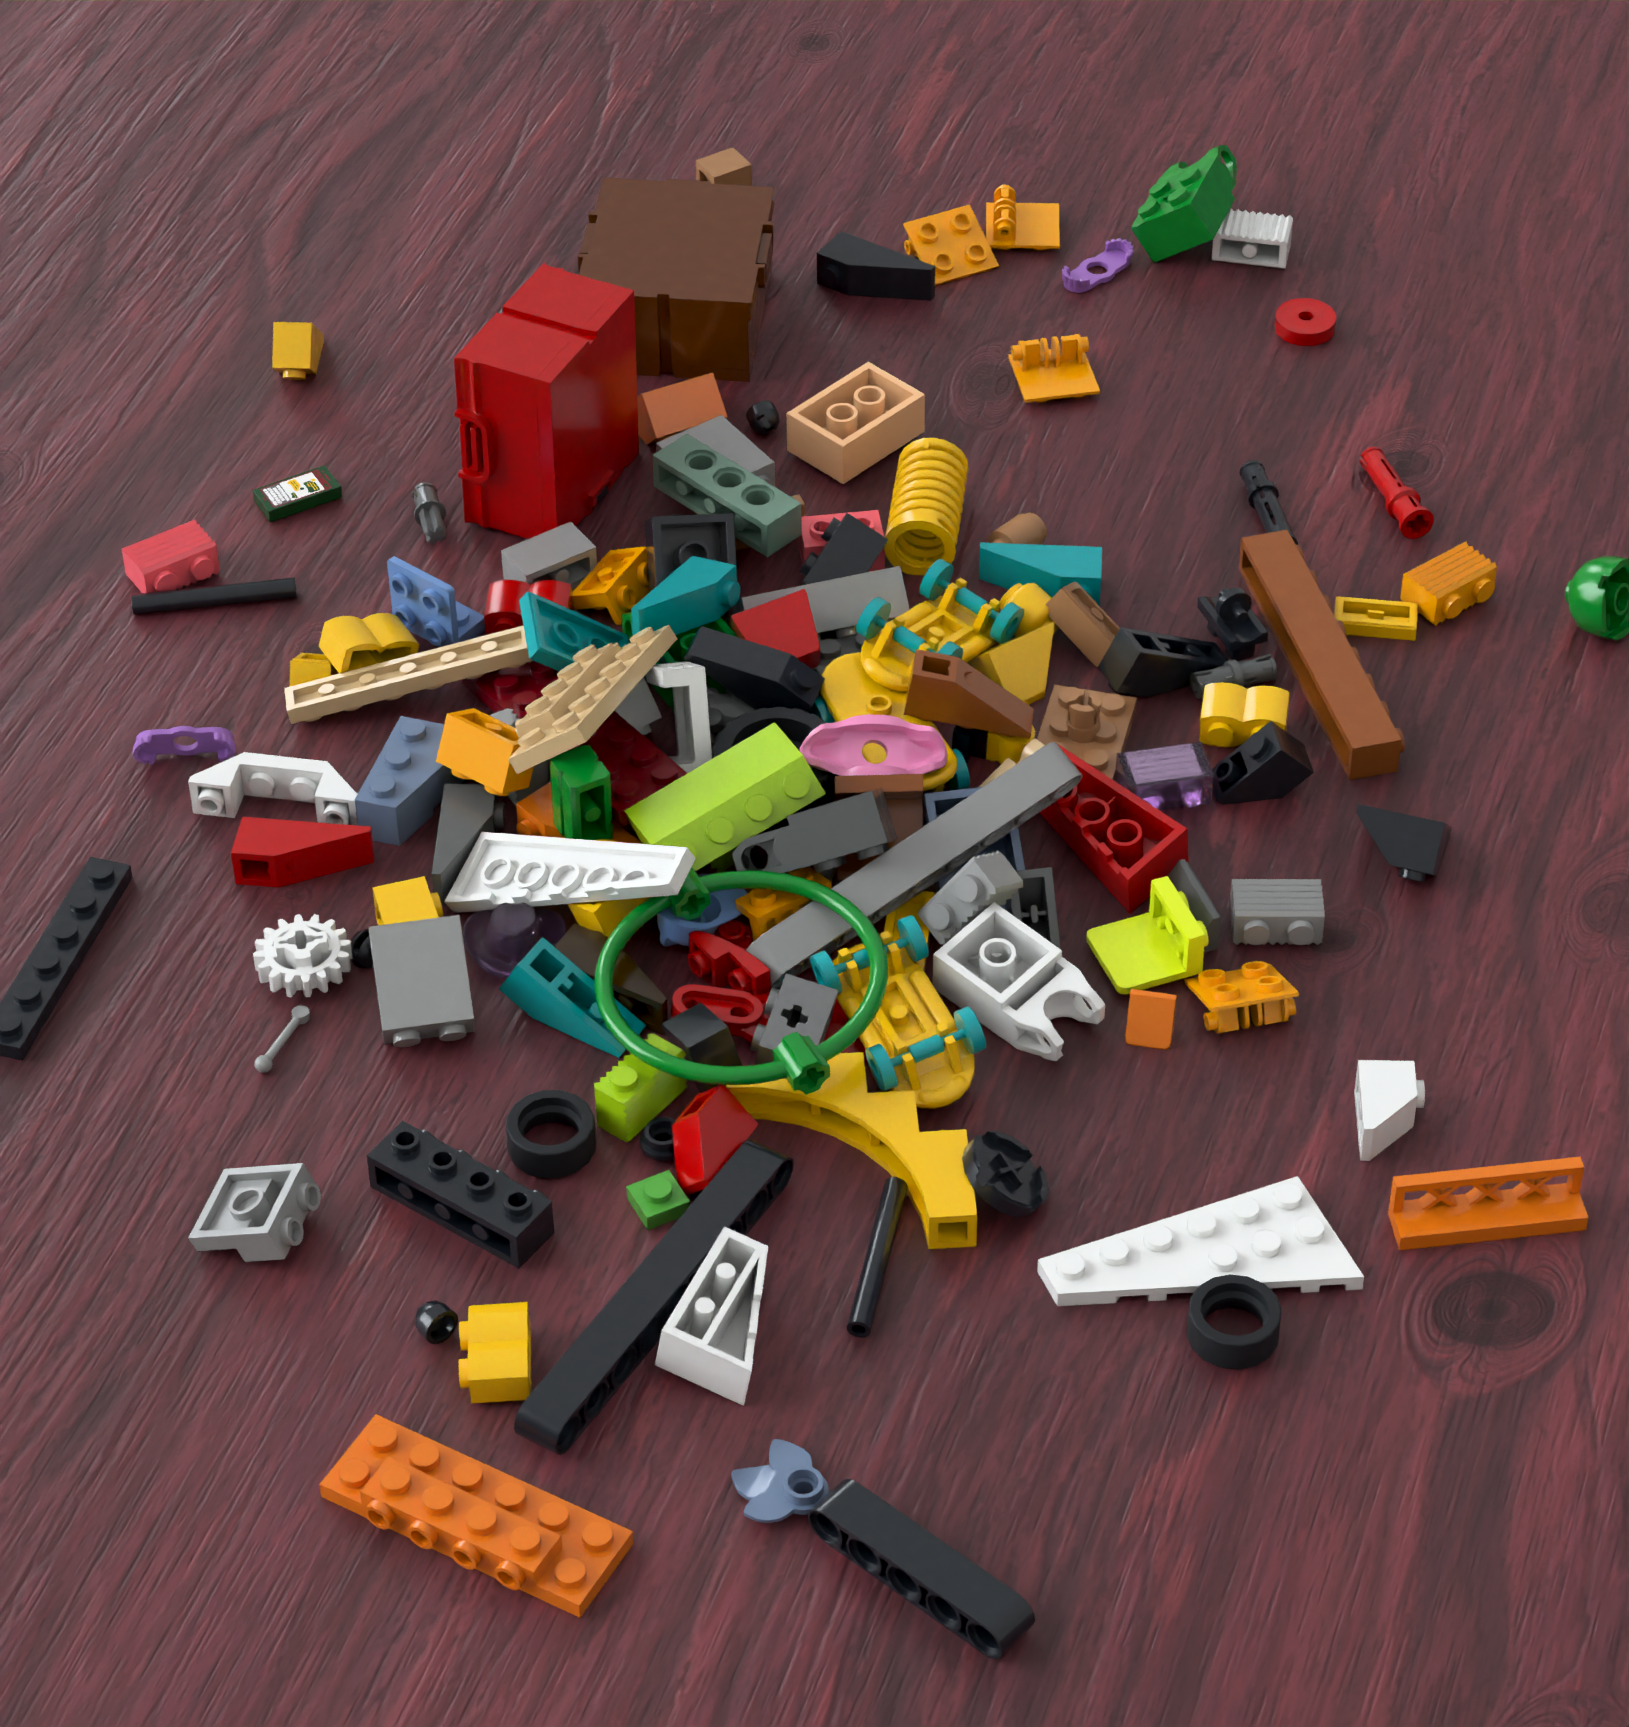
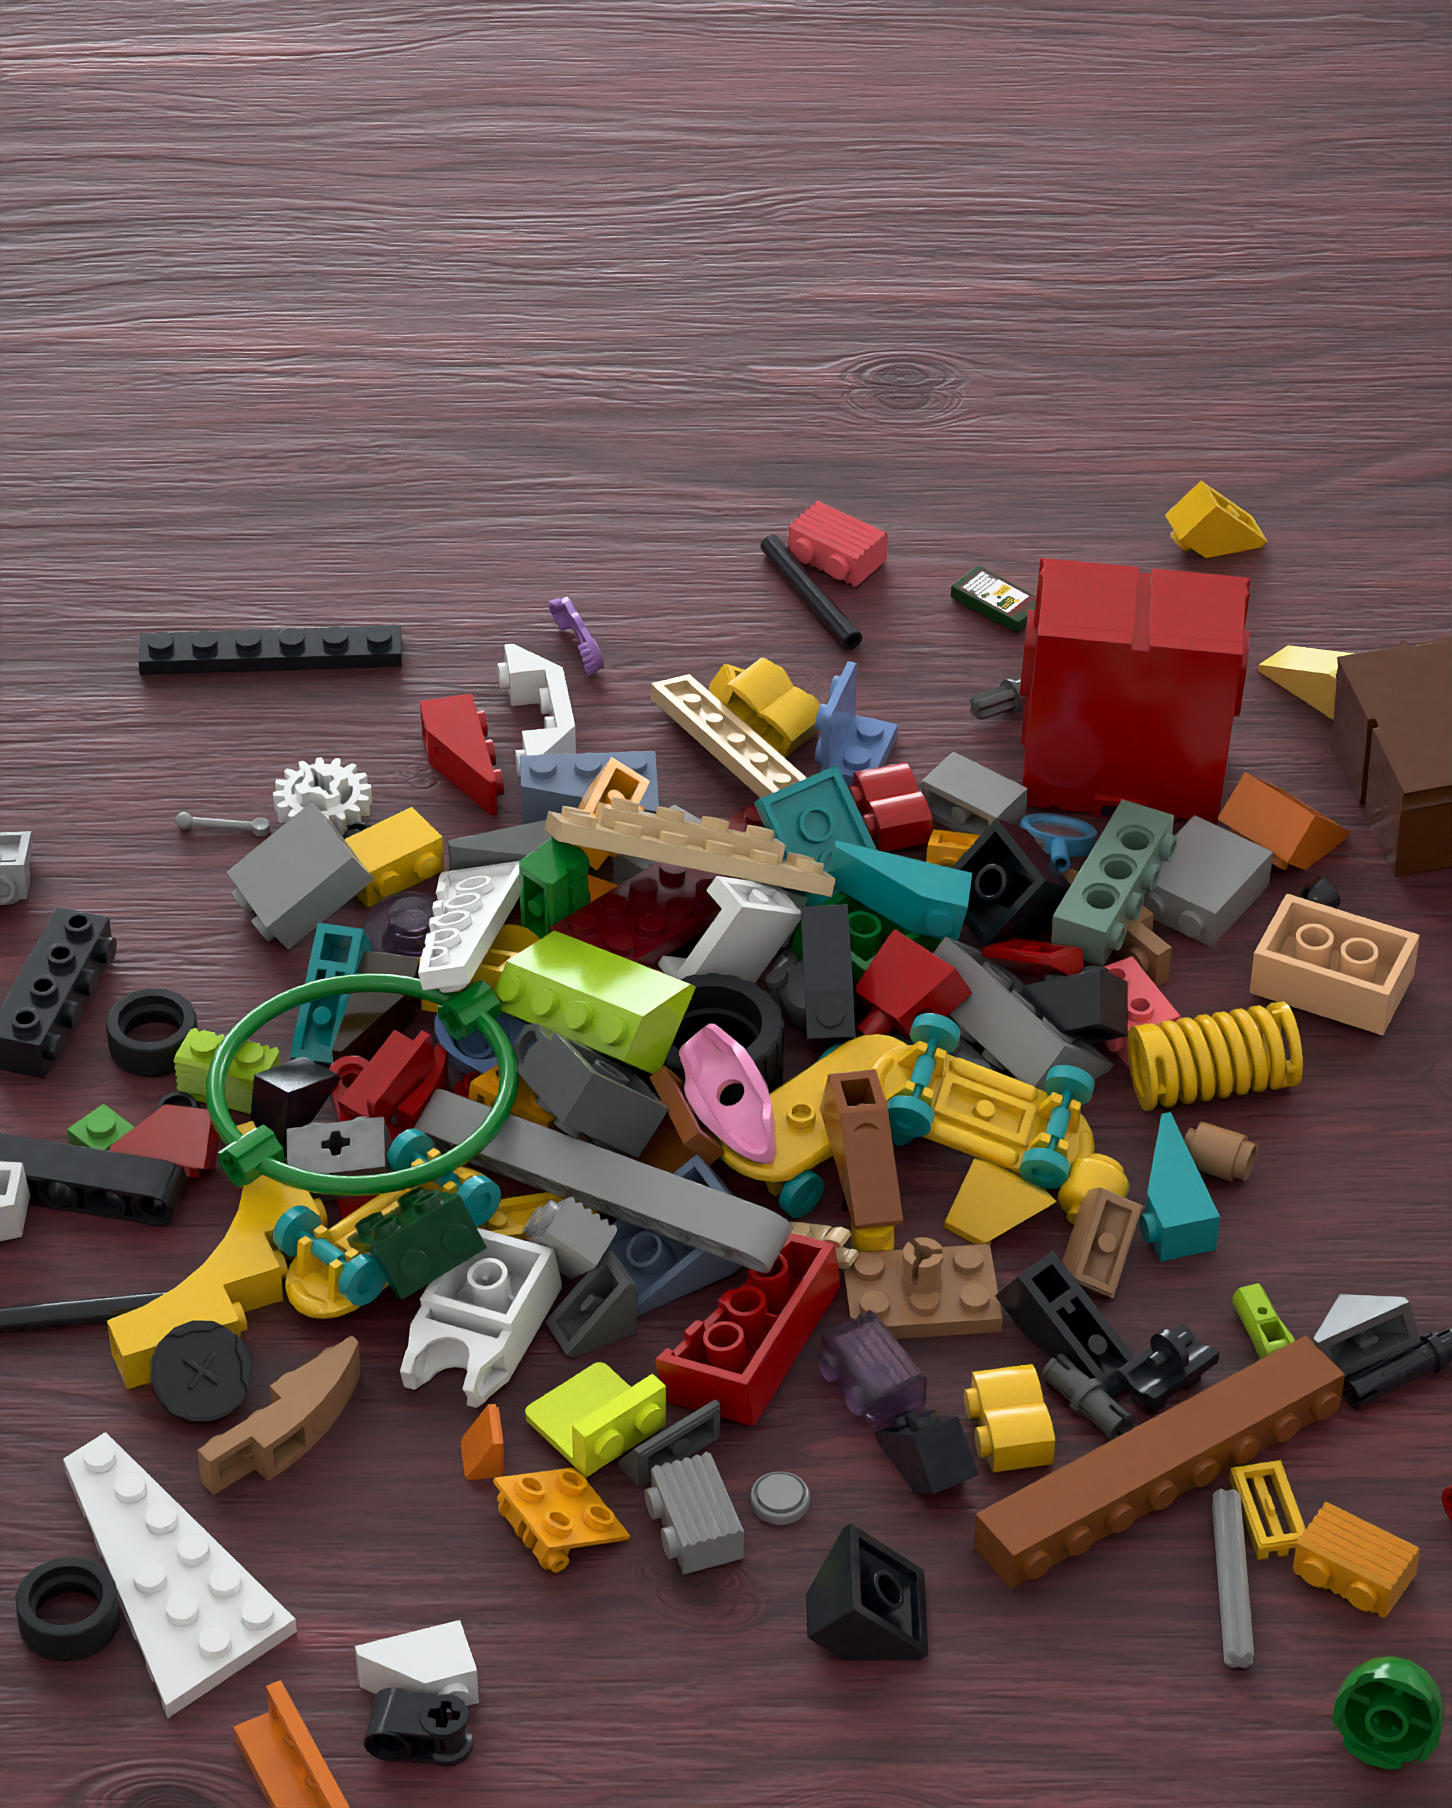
camera: 70 degrees right, 0 degrees up
(620, 527) = (1061, 836): none -> dark azure piece
(731, 965) = (389, 1076): none -> red panel
(774, 563) = (1035, 957): none -> red slope
(939, 977) = (419, 1238): none -> dark green bracket
(1073, 1126) = (299, 1415): none -> medium nougat slope
(1201, 569) = (1260, 1320): none -> lime bar
(1236, 510) = (1366, 1330): none -> dark grey slope
(1263, 865) = (780, 1498): none -> light grey piece
(1436, 651) = (1232, 1579): none -> light grey axle
(1442, 1119) = (413, 1723): none -> black piece

